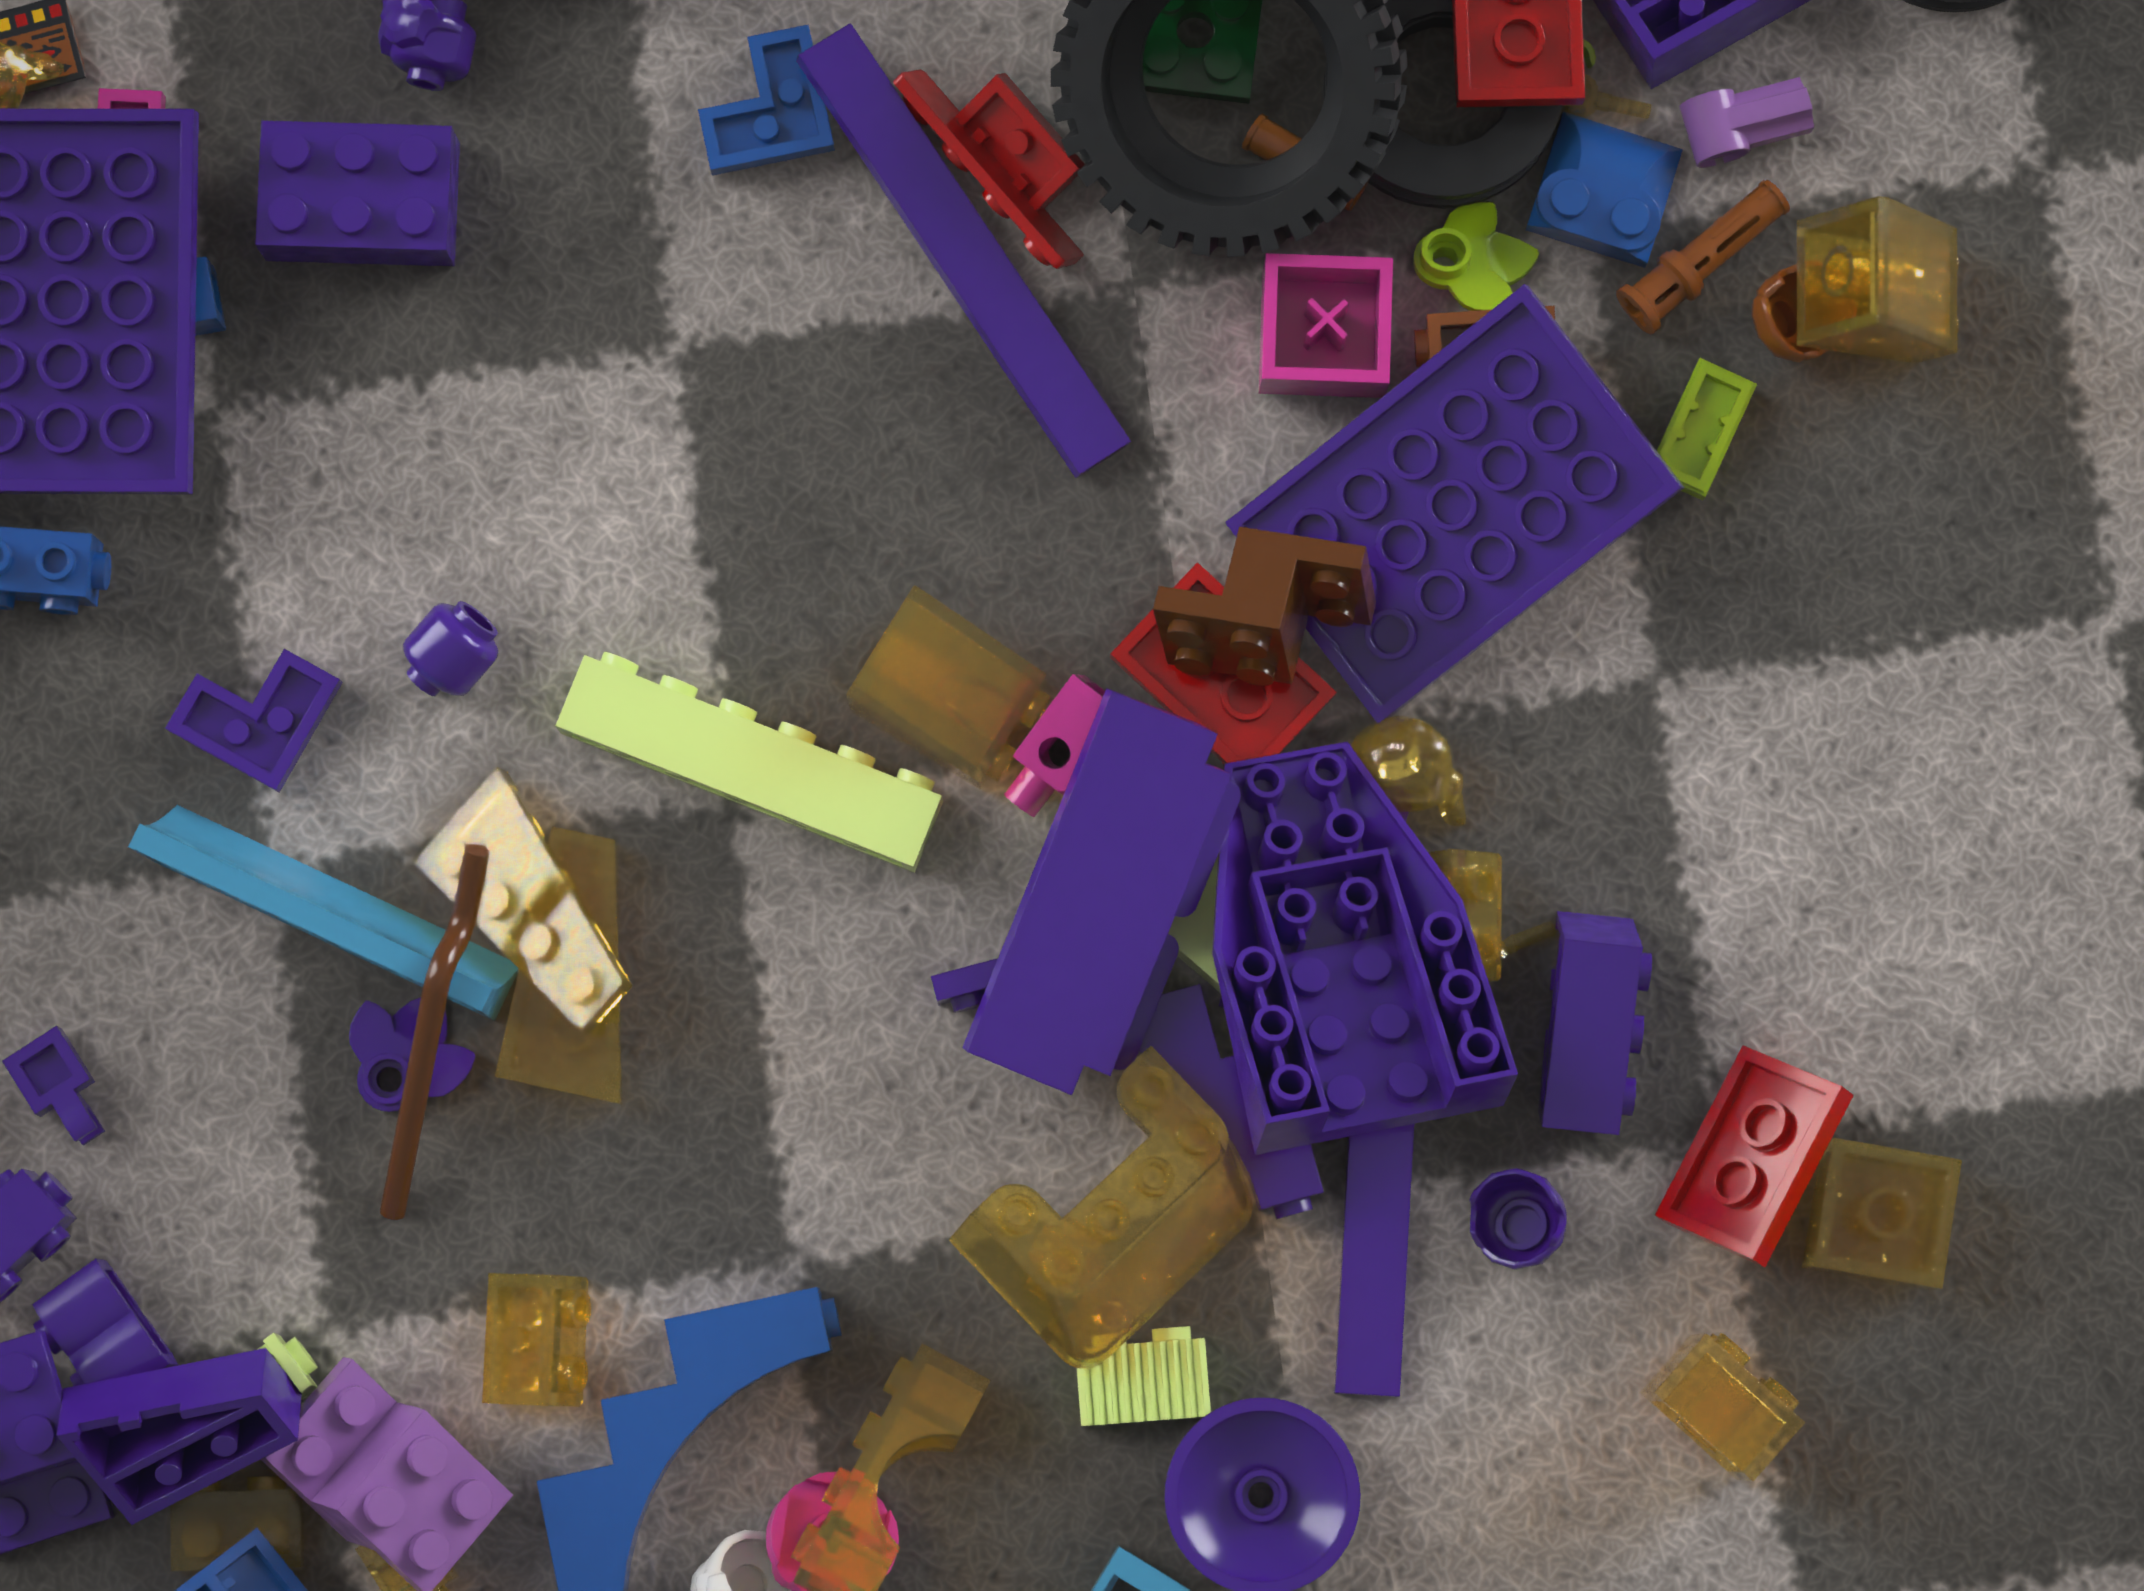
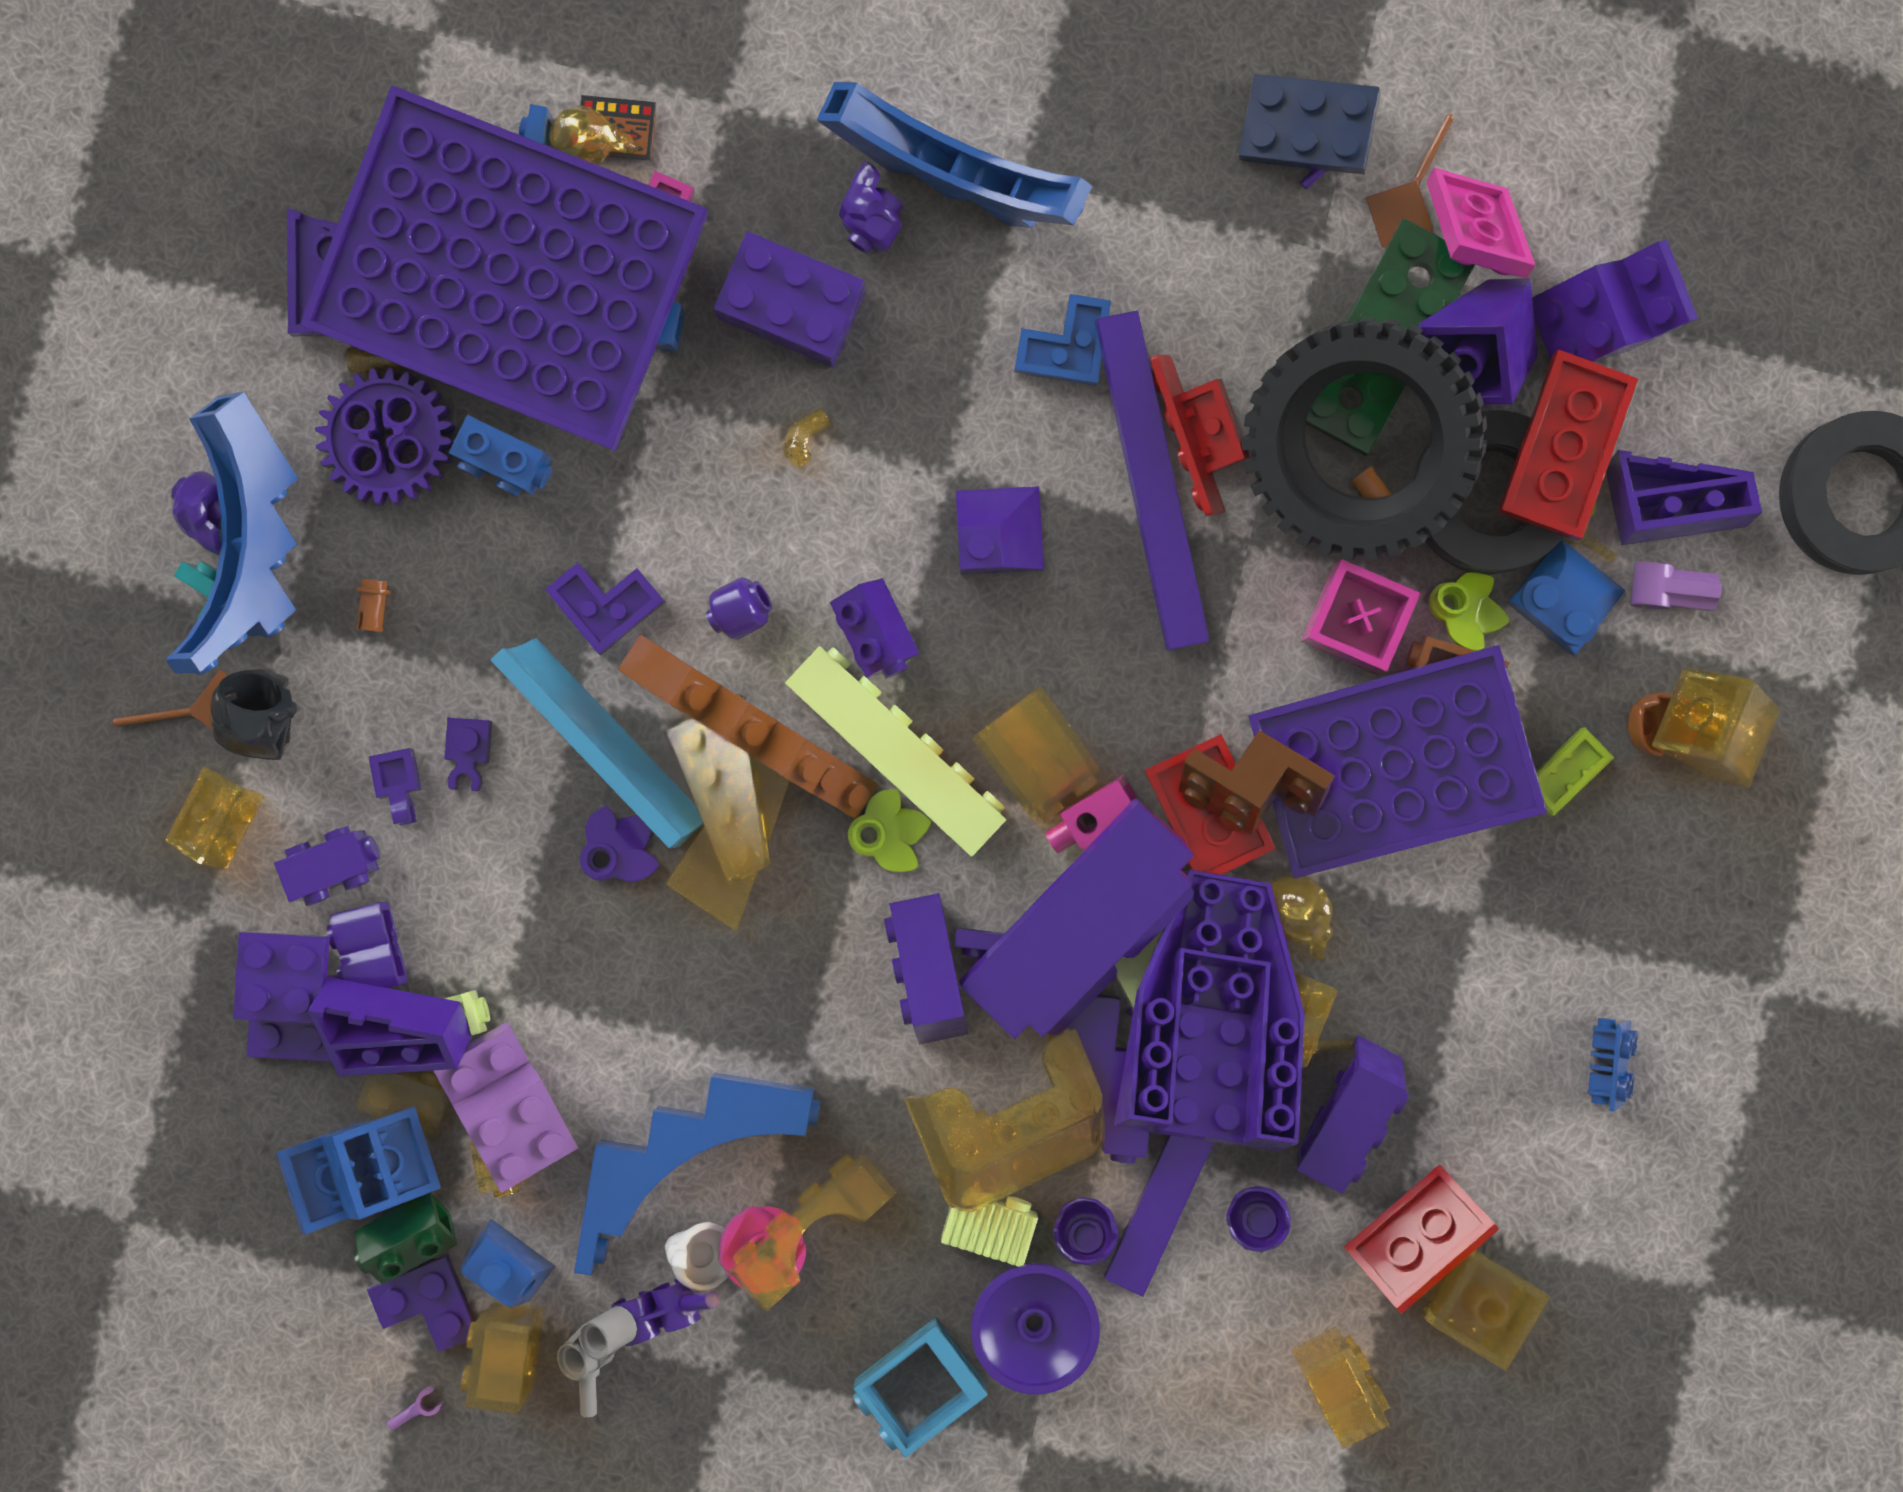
camera: 25 degrees right, 5 degrees up
(135, 992) = (467, 743): none -> dark purple plate
(428, 1030) = (635, 842): reddish brown piece -> none
(443, 376) = (799, 436): none -> clear yellow arm
(527, 804) = (747, 727): none -> dark orange arch
(536, 1339) = (629, 1055): clear yellow bracket -> none
(653, 604) = (874, 629): none -> dark purple brick
(776, 402) = (999, 530): none -> dark purple slope
(792, 875) = (895, 829): none -> lime plate
(913, 1051) = (926, 969): none -> dark purple wedge
(1299, 1326) = (1085, 1243): none -> dark purple hair
(1682, 272) = (1595, 669): dark orange pin -> none
(1927, 774) = (1619, 1084): none -> blue hinge

